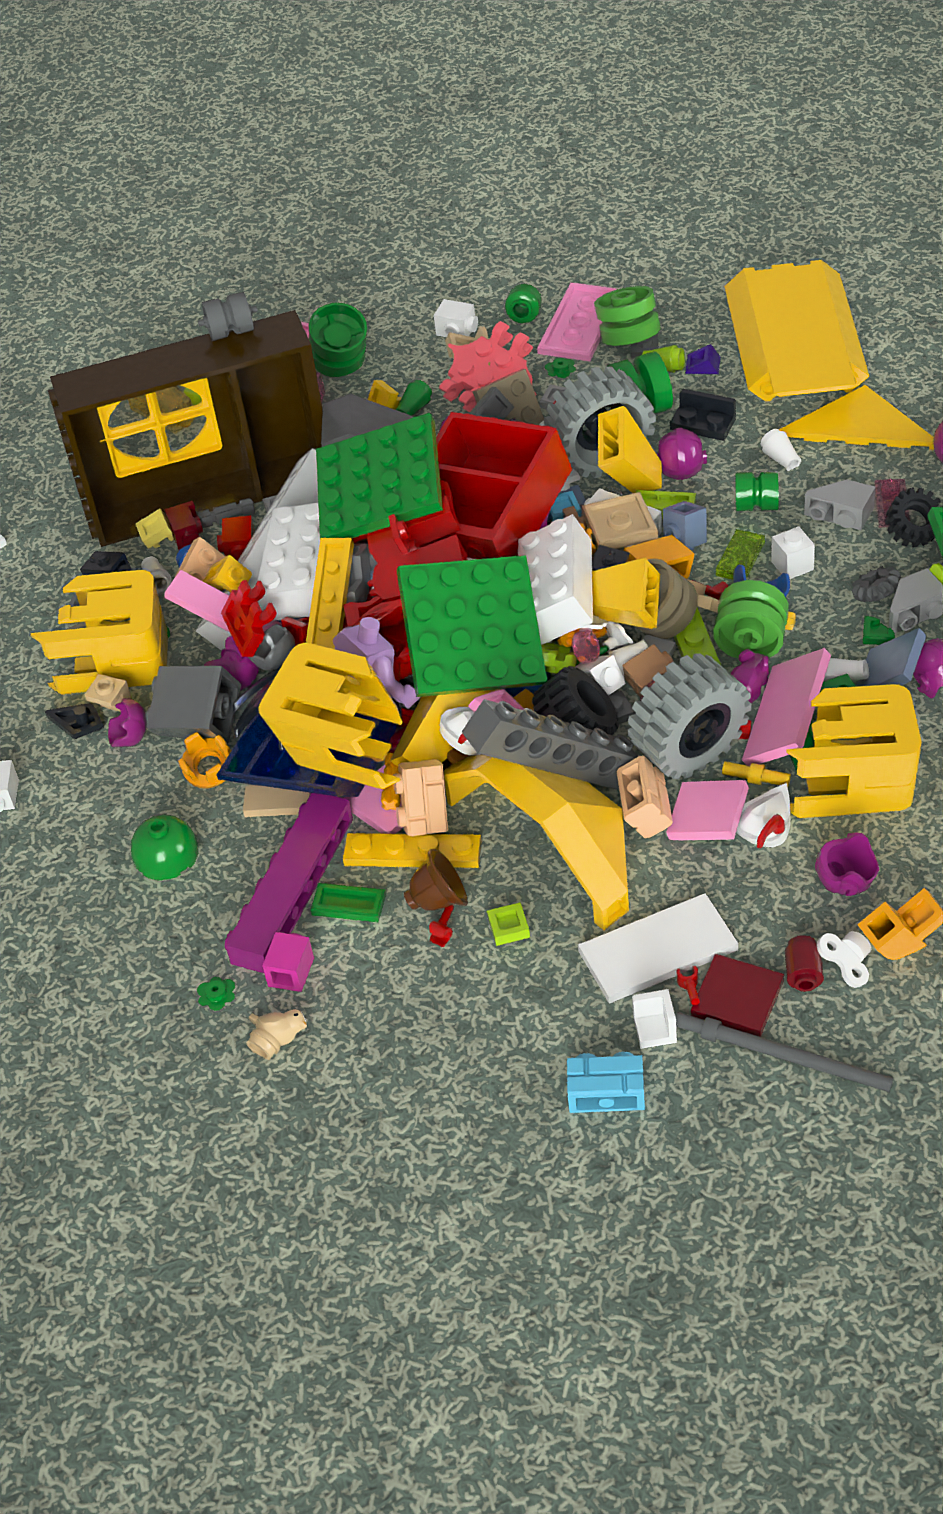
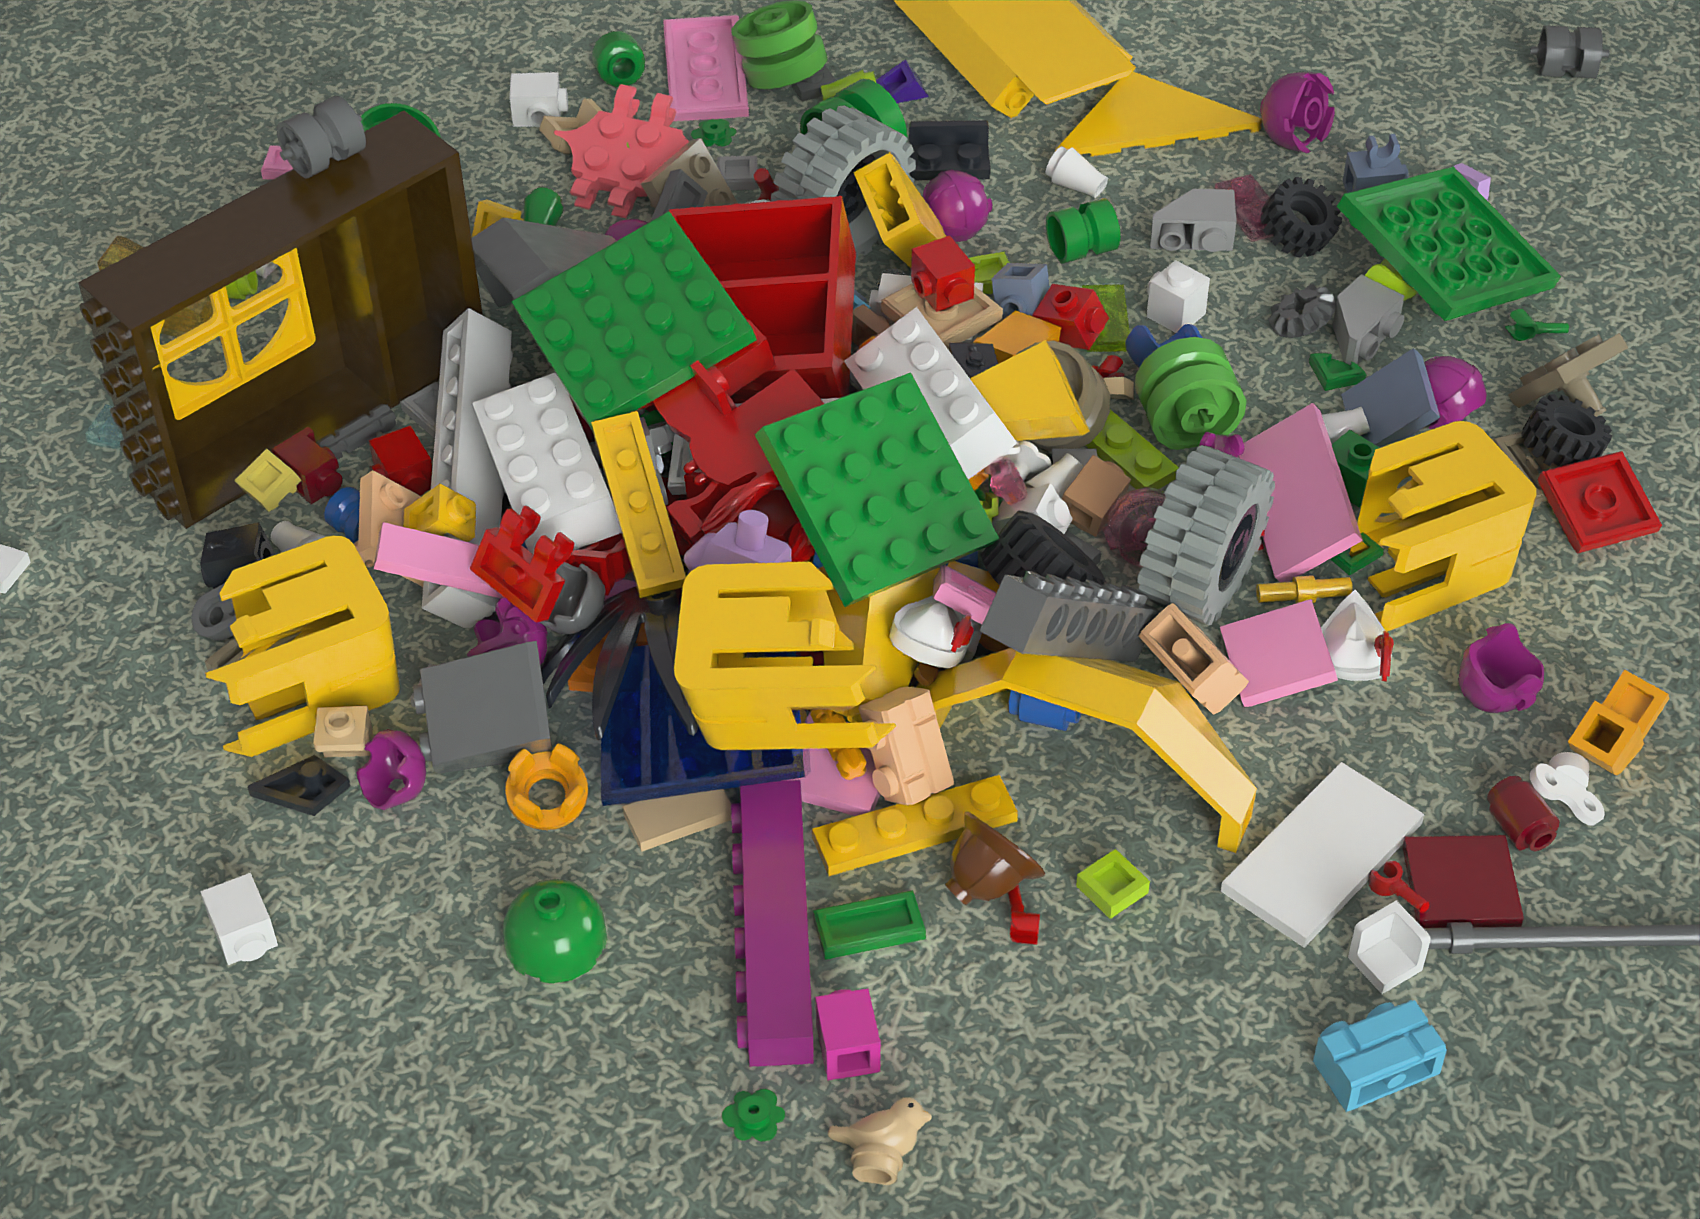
camera: 30 degrees left, 0 degrees up
(623, 497) = (942, 273): none -> red brick
(710, 548) = (1076, 312): none -> red brick

